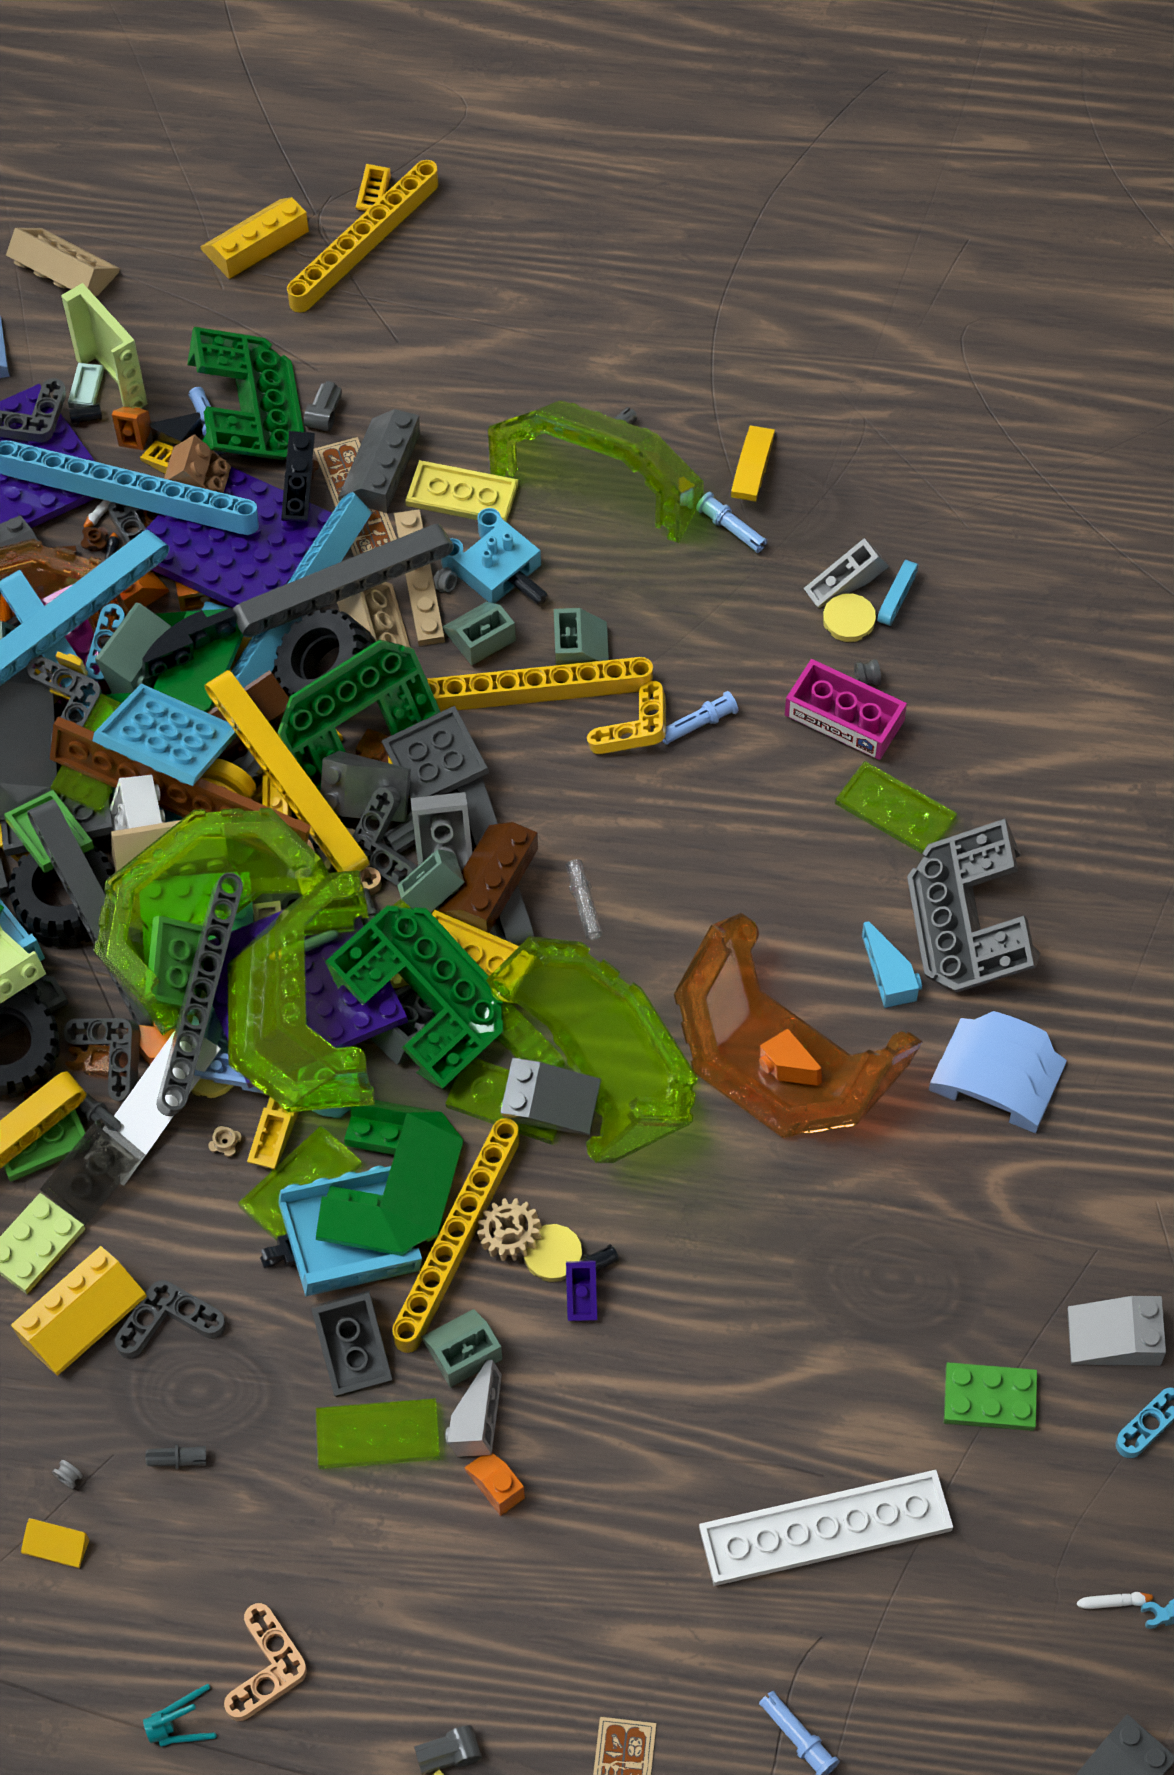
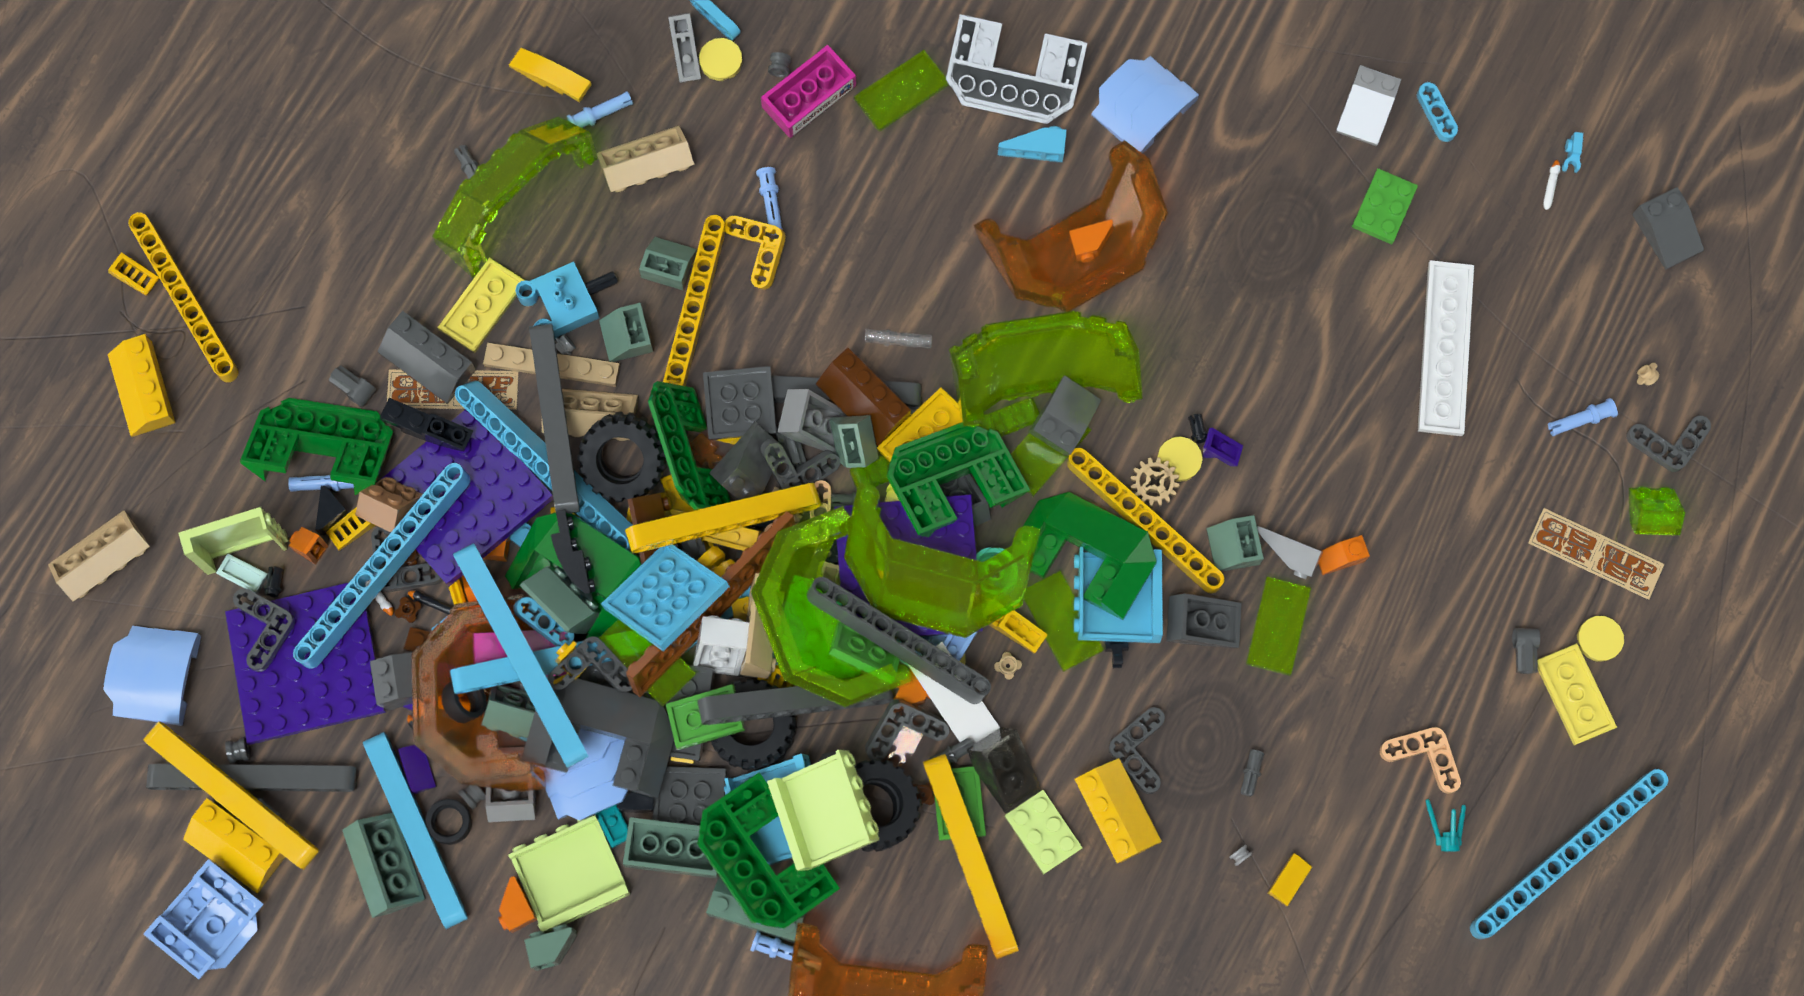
camera: 75 degrees left, 15 degrees up
(693, 582) = (645, 159): none -> tan slope

